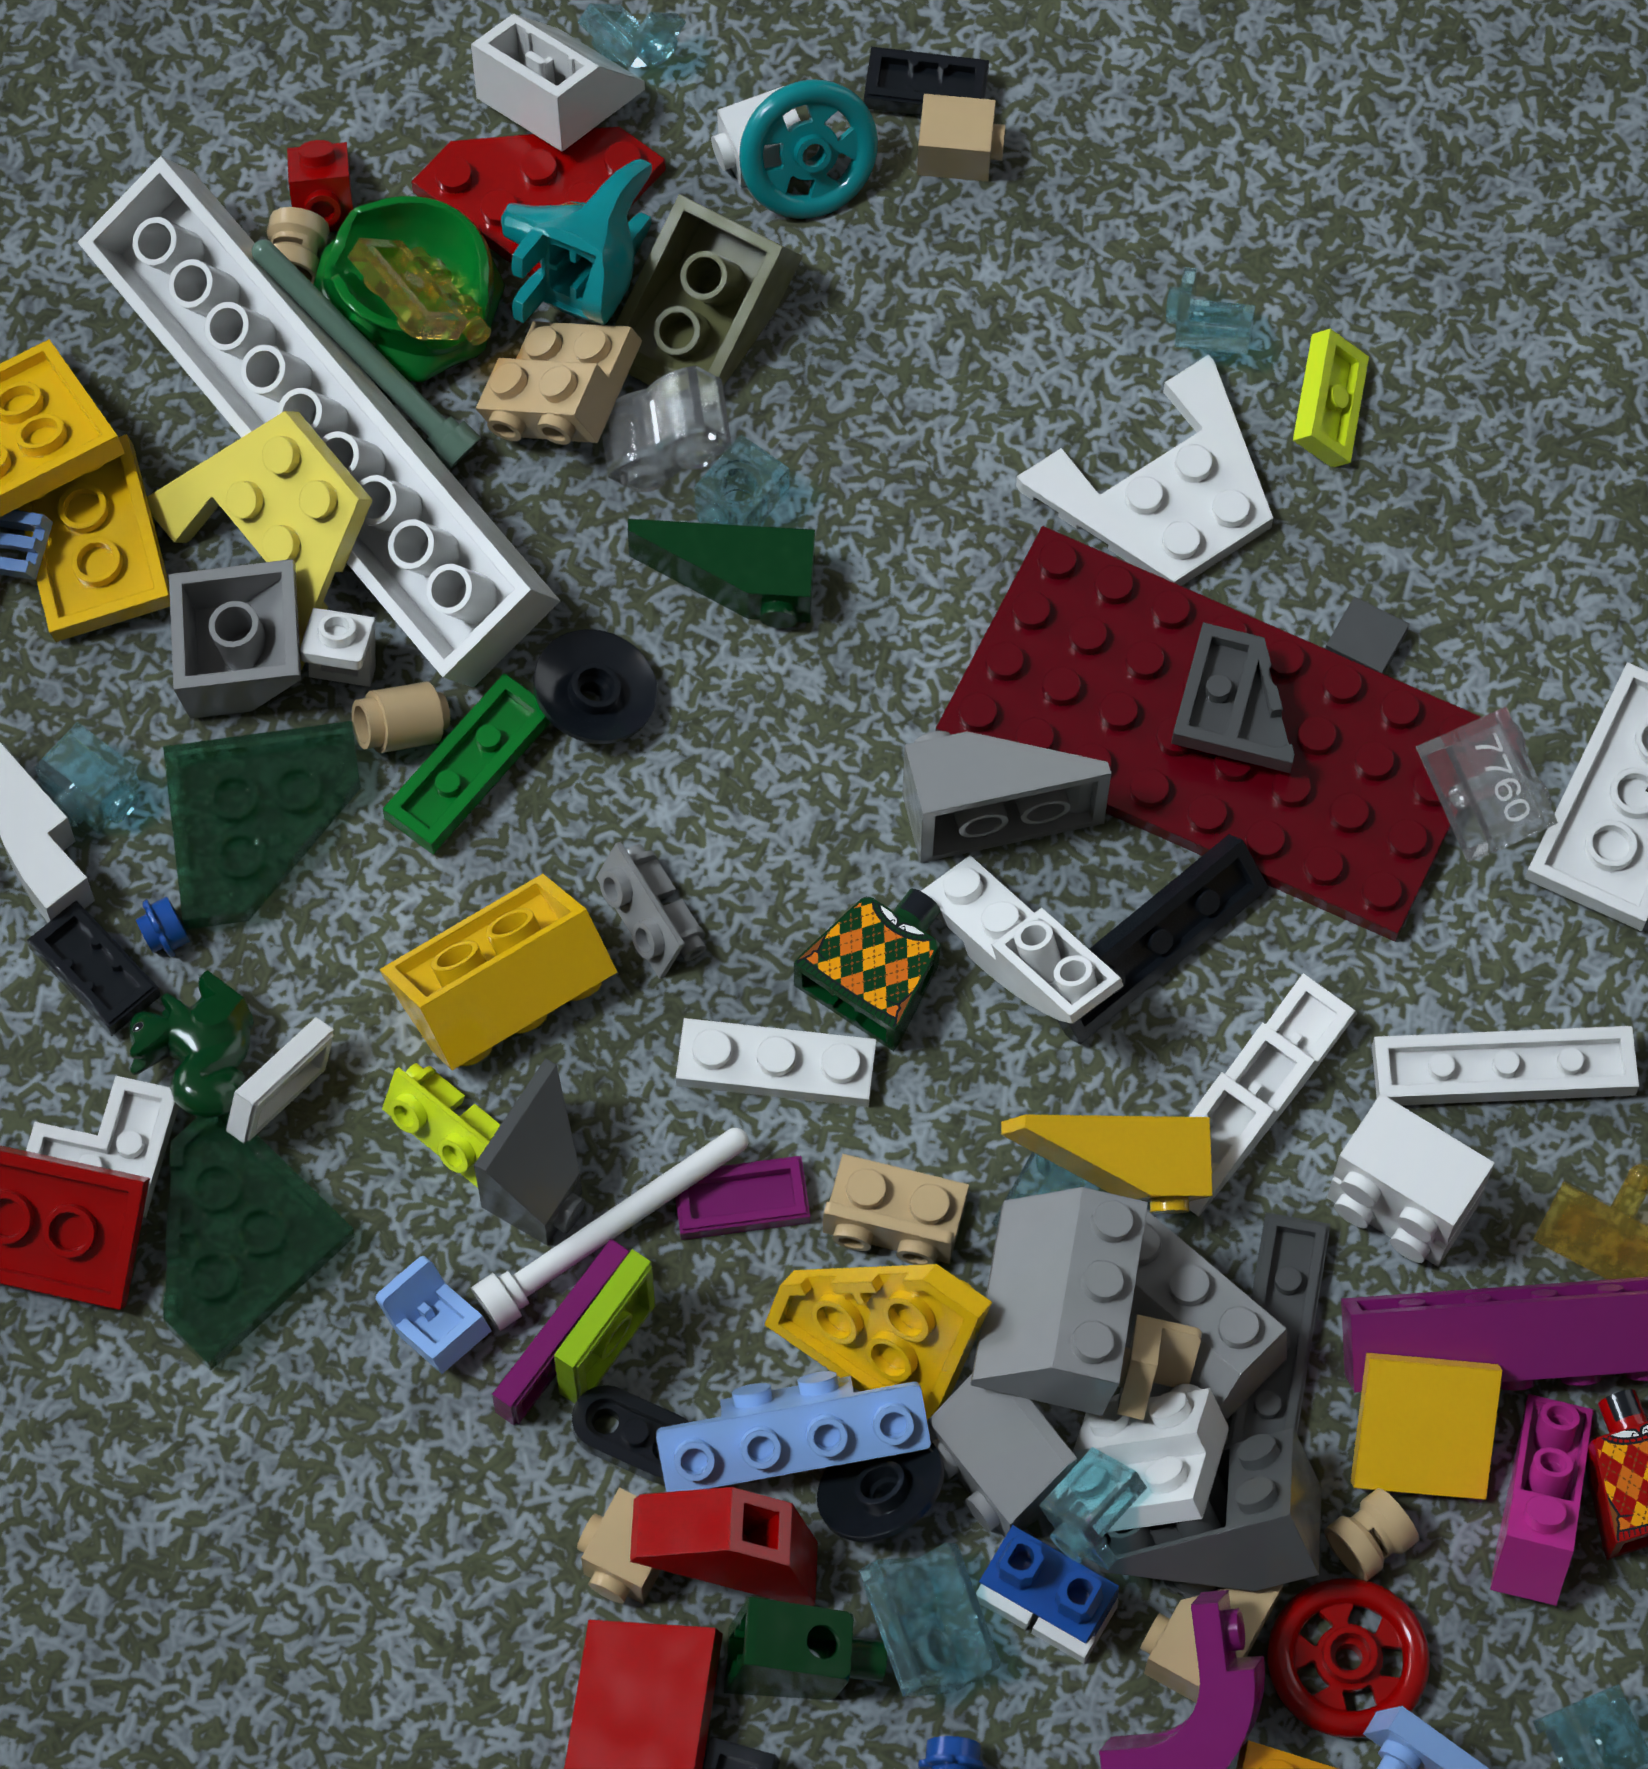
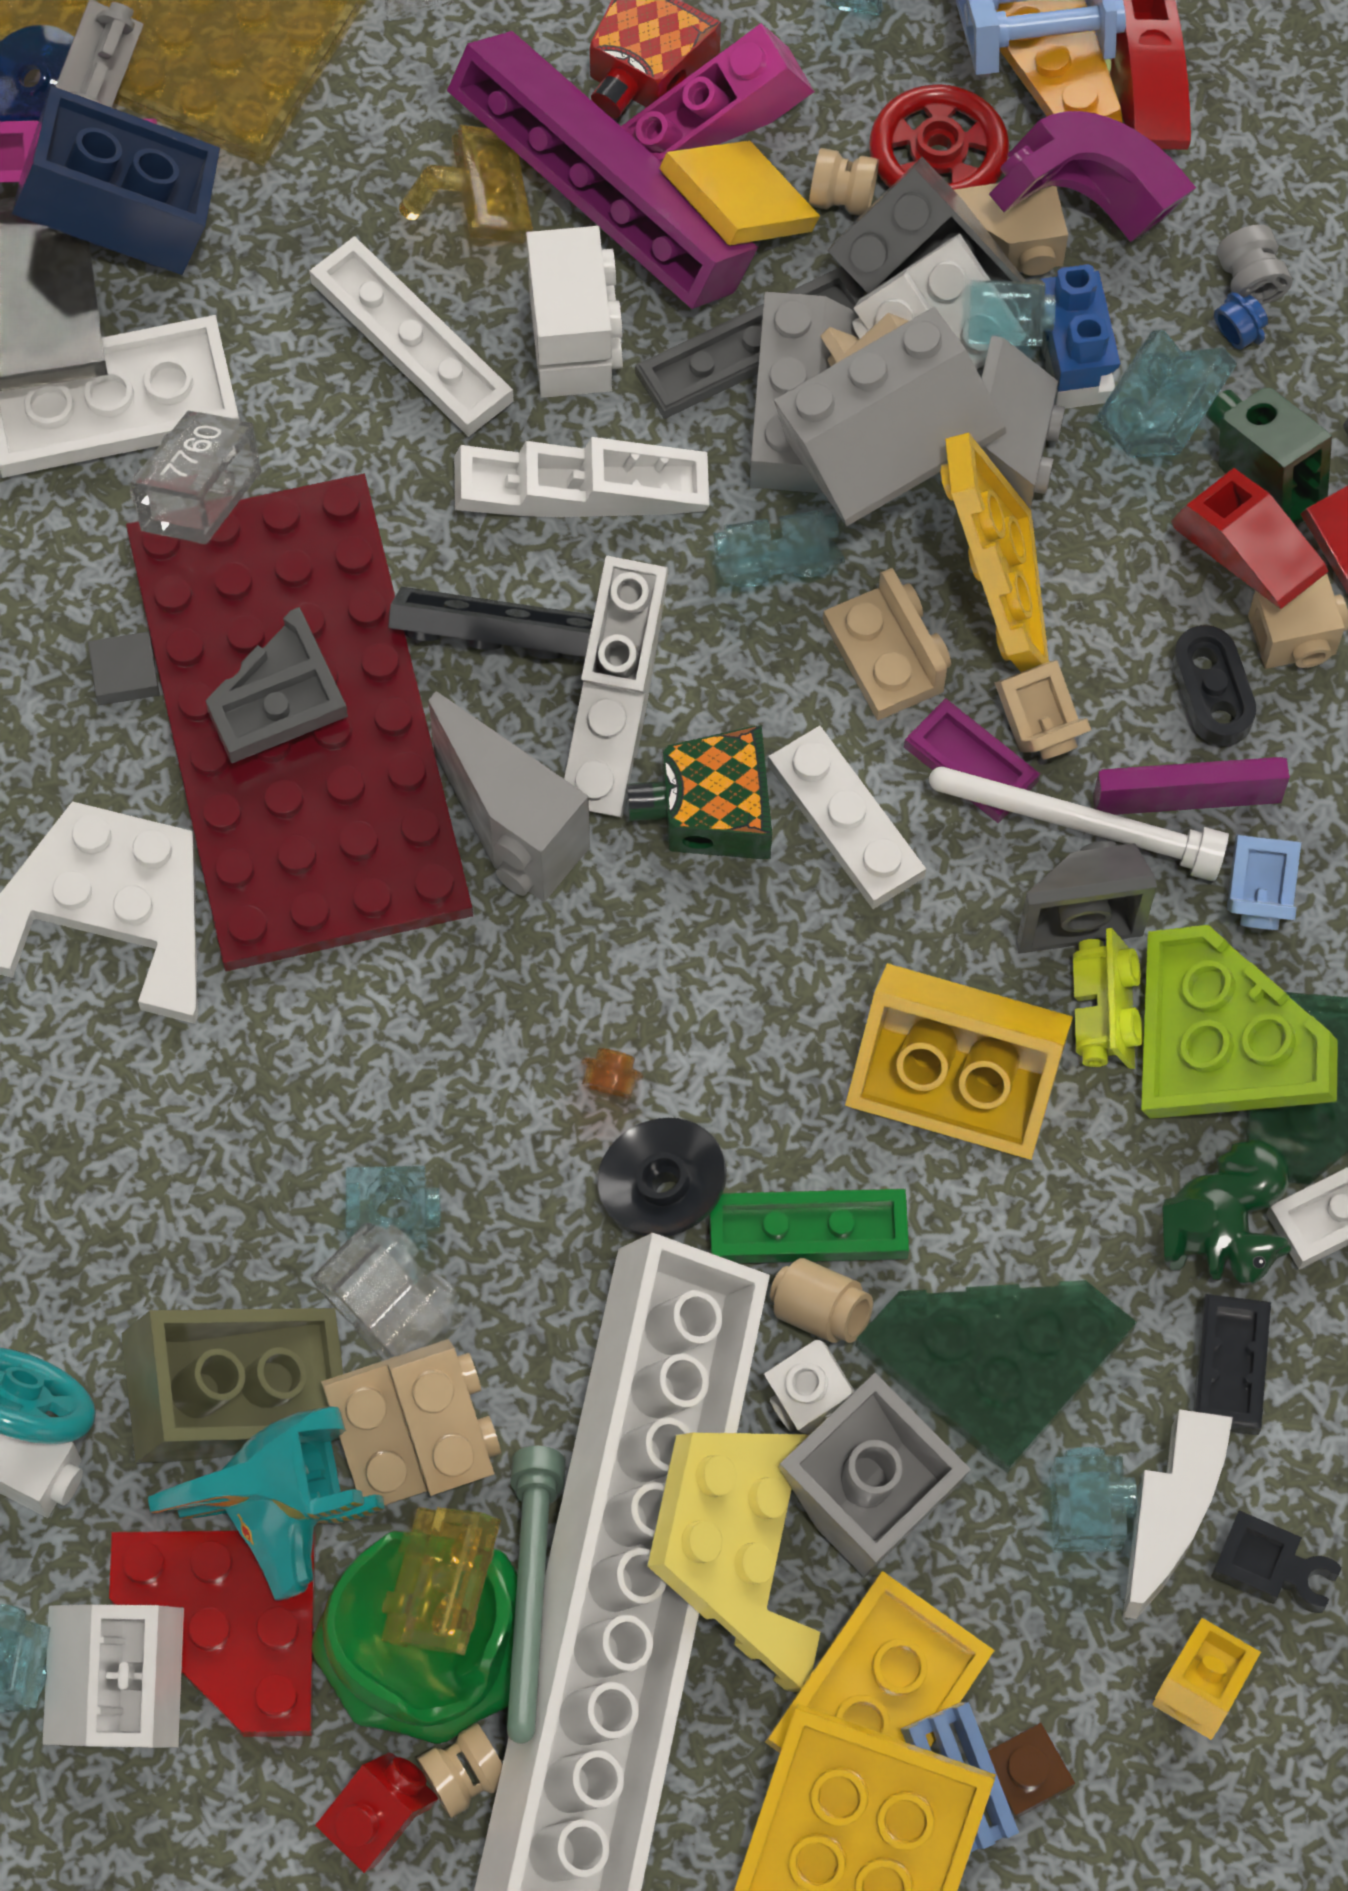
camera: 130 degrees left, 0 degrees up
(162, 927) = (1151, 1341): blue plate -> none
(280, 1080) = (1197, 1127): white tile -> none
(335, 1166) = (1225, 1033): none -> lime plate
(606, 1327) = (1172, 733): lime tile -> none
(634, 886) = (817, 971): light grey hinge -> none
(710, 719) = (611, 1073): none -> clear orange plate
(727, 1273) = (1041, 710): none -> tan bracket
(744, 568) = (449, 1133): dark green slope -> none
(792, 1431) = (1116, 578): light blue bracket -> none
(880, 1495) = (1133, 502): black dish -> none
(1128, 1156) = (719, 489): yellow slope -> none

